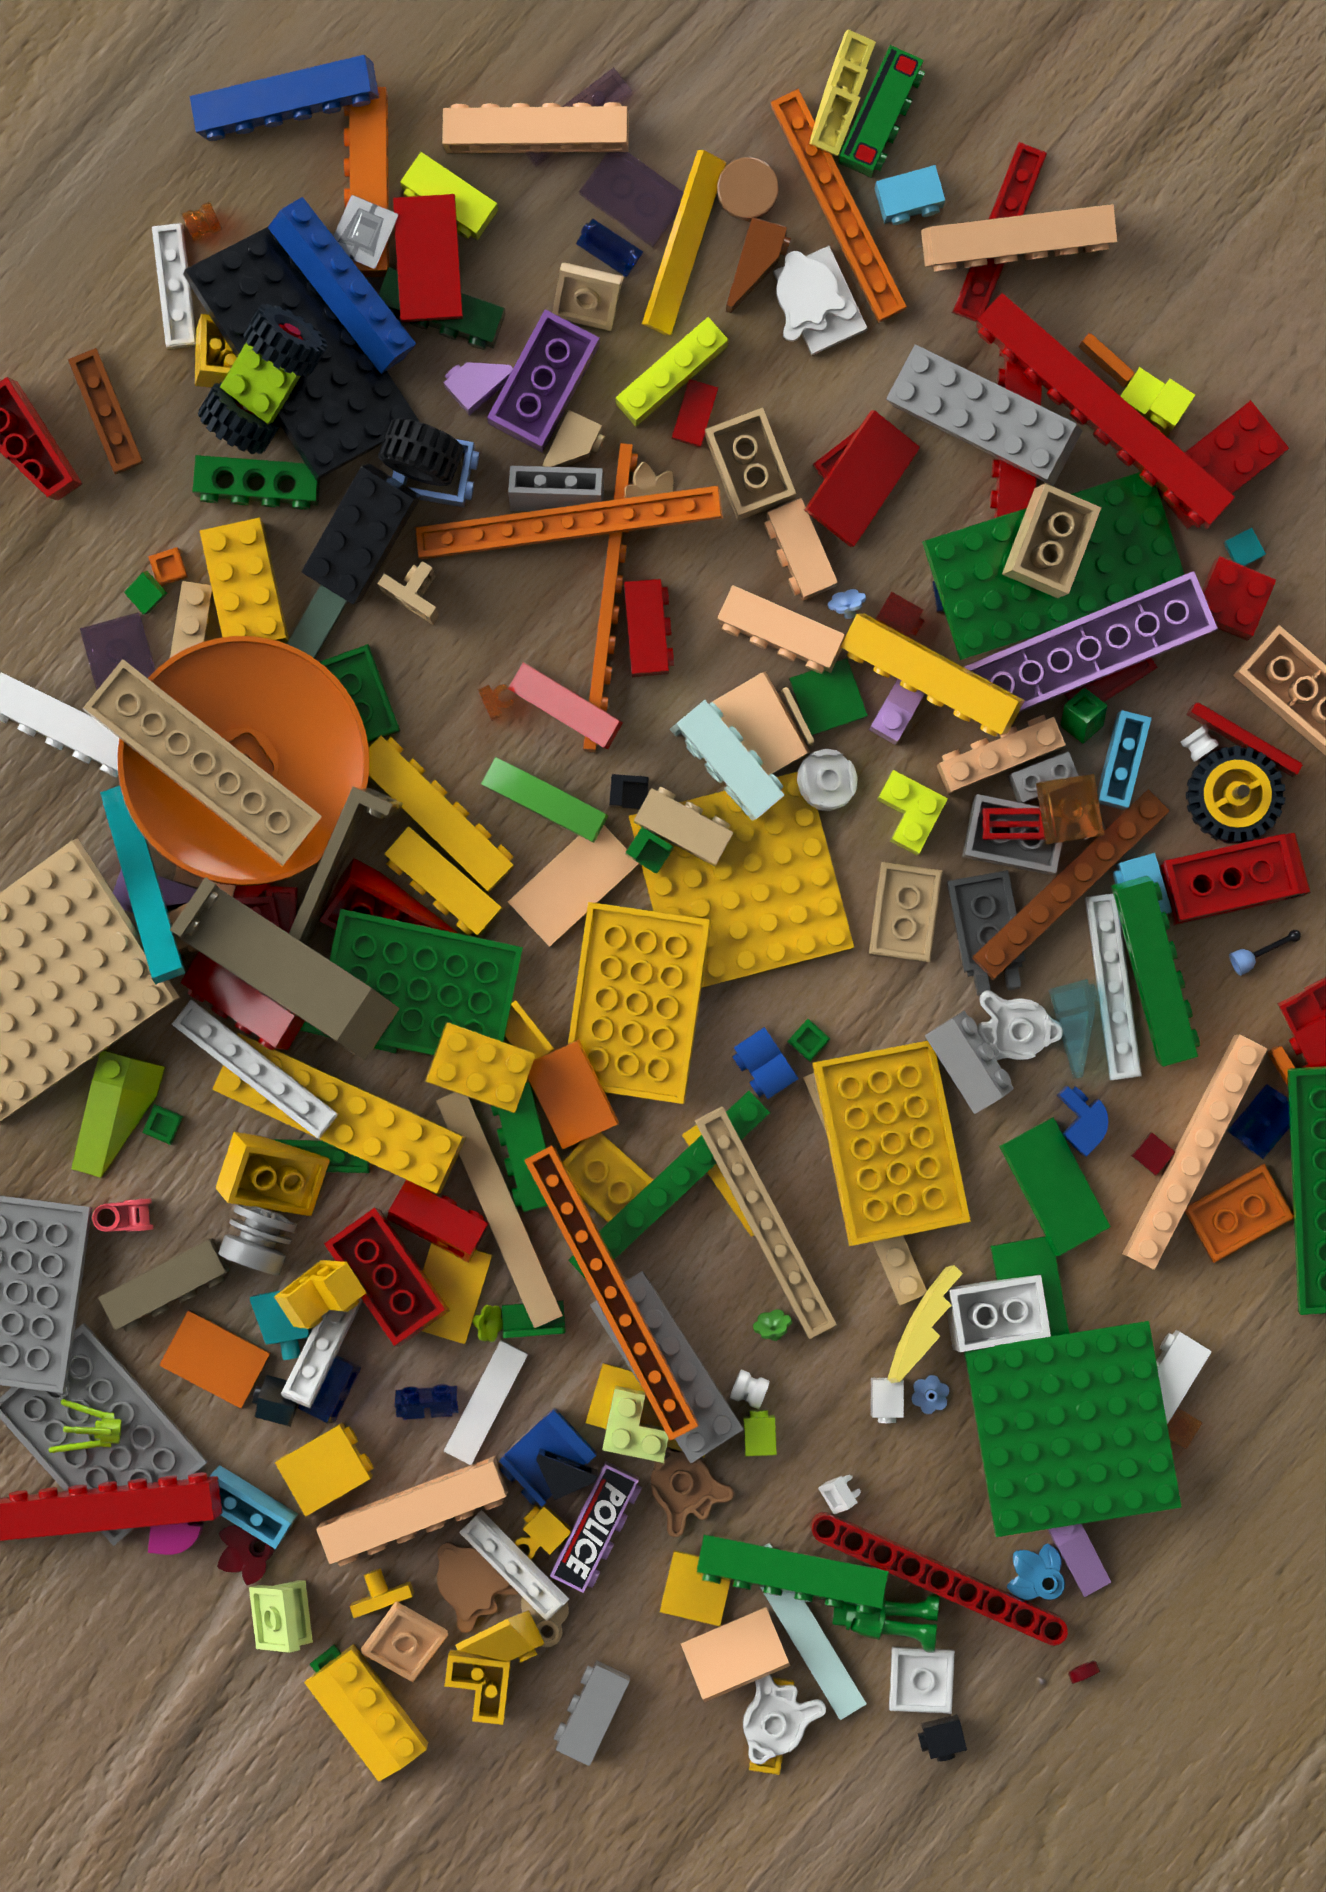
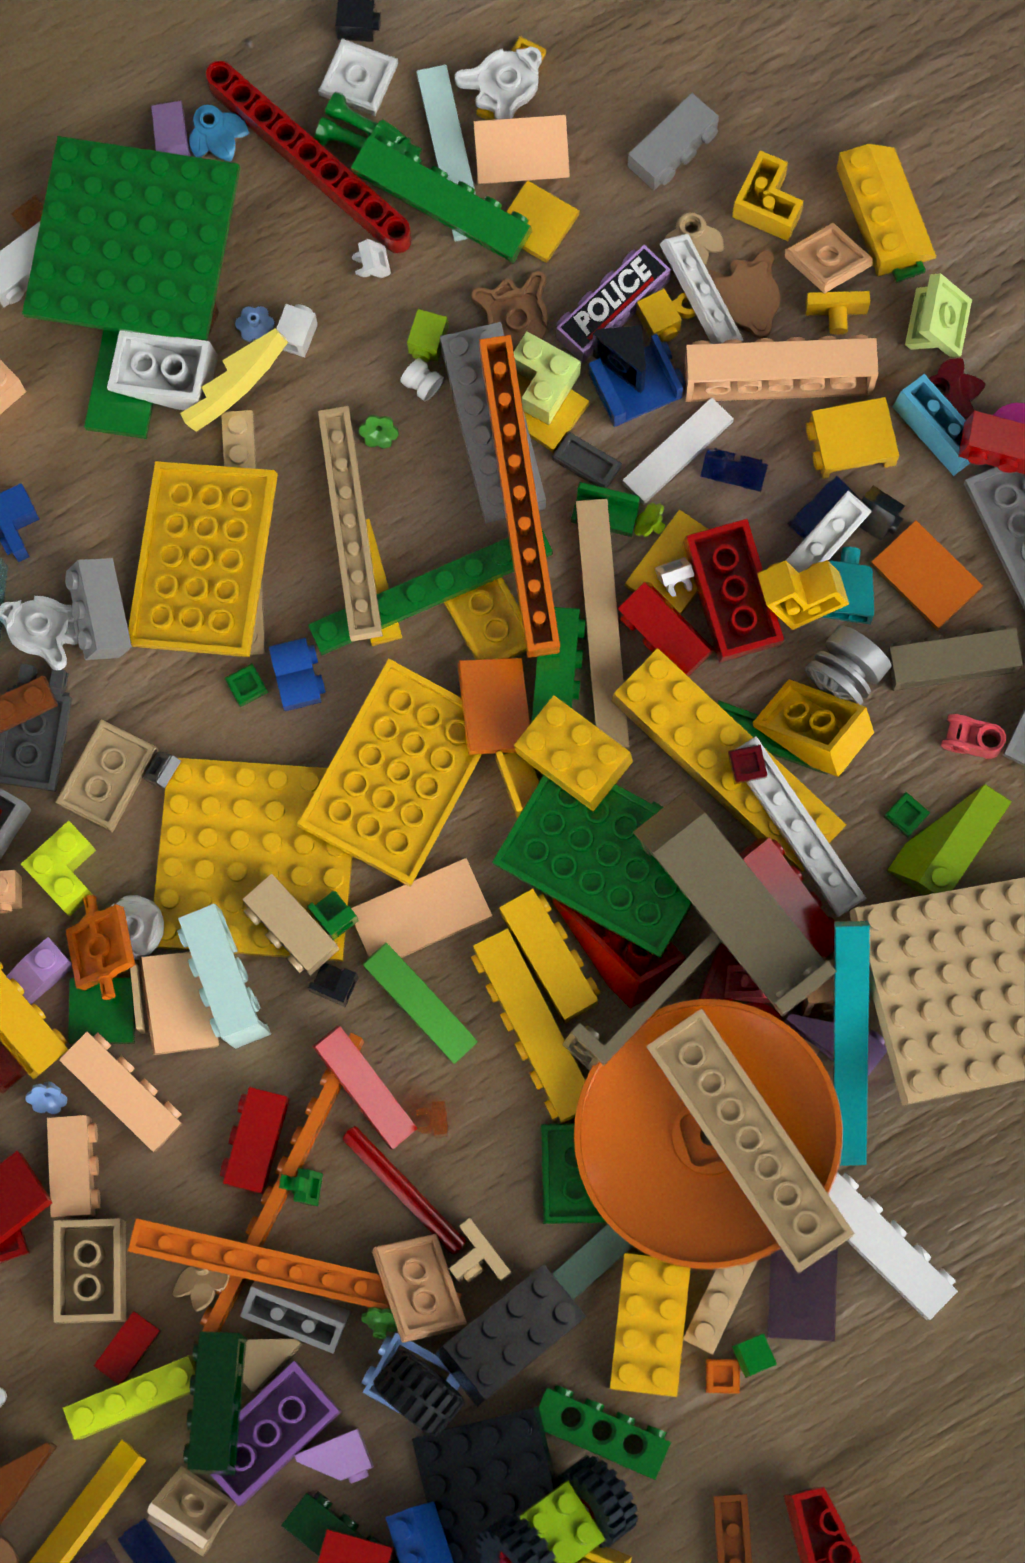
camera: 150 degrees left, 10 degrees down
(316, 1108) = (747, 764): none -> dark red tile
(446, 1277) = (675, 572): none -> white tile
(455, 547) = (419, 1288): none -> light nougat tile
(479, 509) = (380, 1321): none -> bright green plant
(501, 631) = (404, 1189): none -> red axle
(506, 1640) = (733, 226): yellow slope -> none
(567, 1363) = (586, 461): none -> dark grey tile
(589, 602) = (305, 1186): none -> green plate
(594, 385) = (215, 1403): none -> dark green brick
(848, 749) = (100, 947): none -> orange plate
(855, 933) = (161, 769): none -> dark grey tile
(1054, 1186) = (63, 468): green tile -> none
(1083, 1671) = (206, 34): dark red tile -> none

